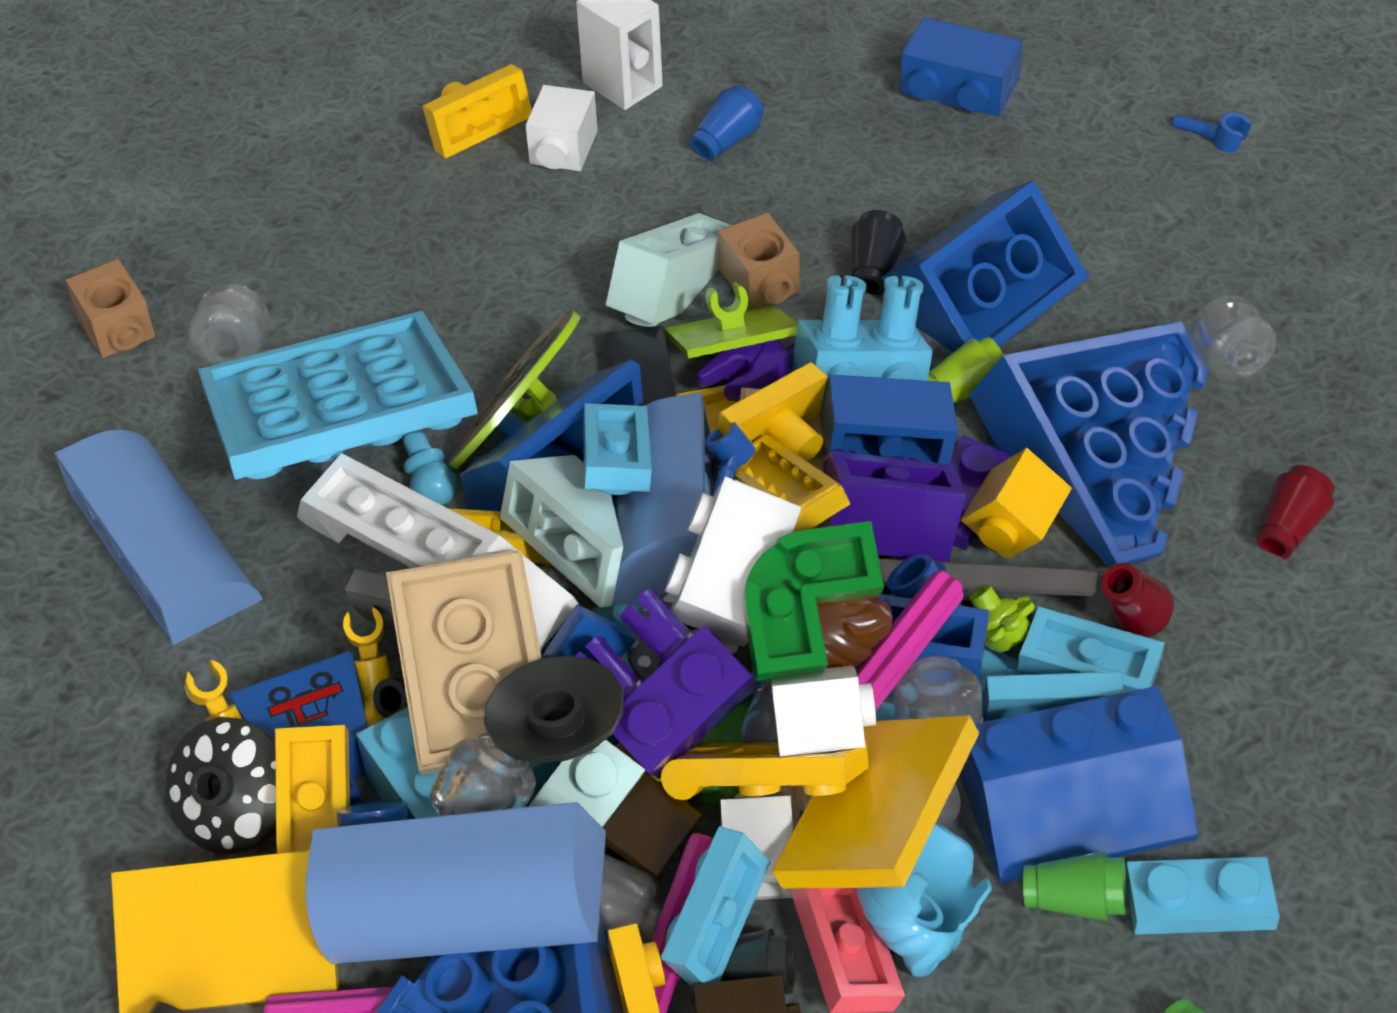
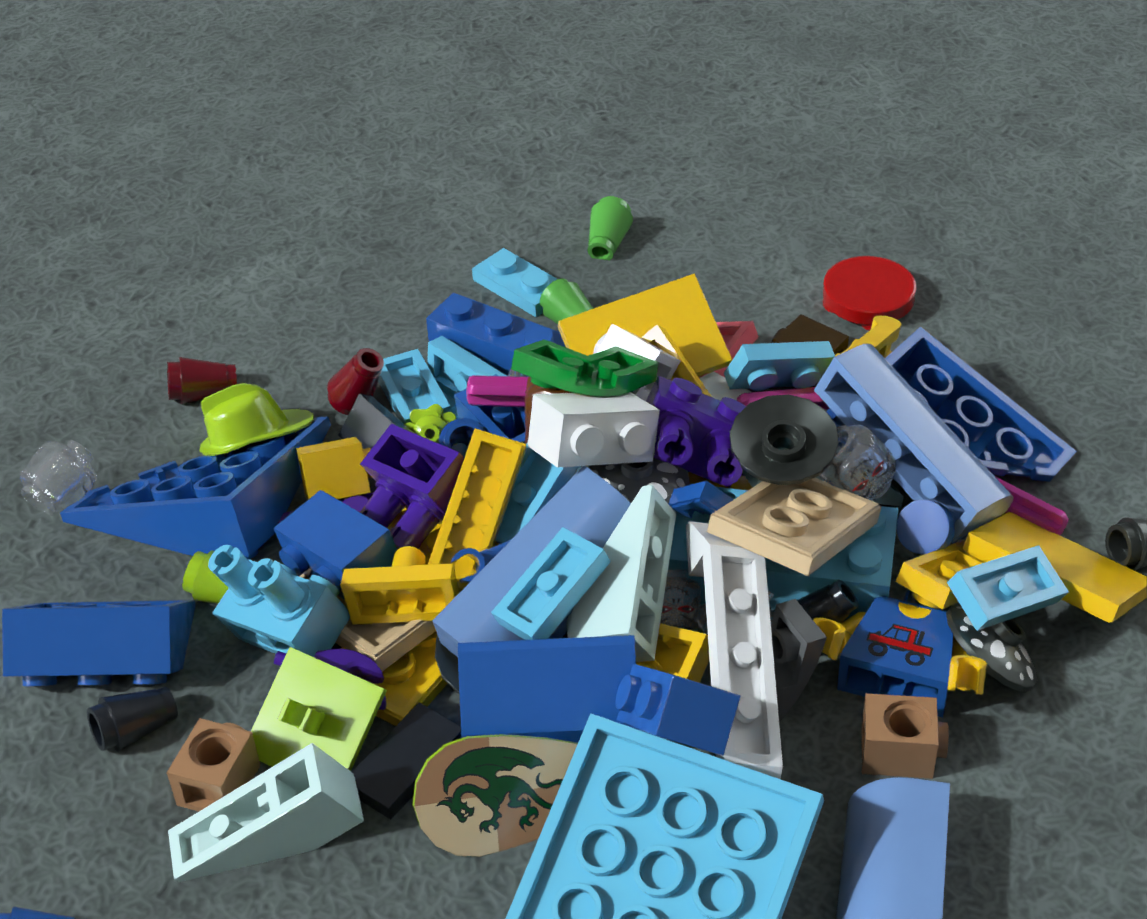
camera: 135 degrees left, 5 degrees down
(226, 786) = (1007, 587): none -> medium azure plate
(250, 645) = (902, 736): none -> medium nougat brick
(412, 443) = (676, 708): none -> blue brick
(1166, 506) = (245, 416): none -> lime piece

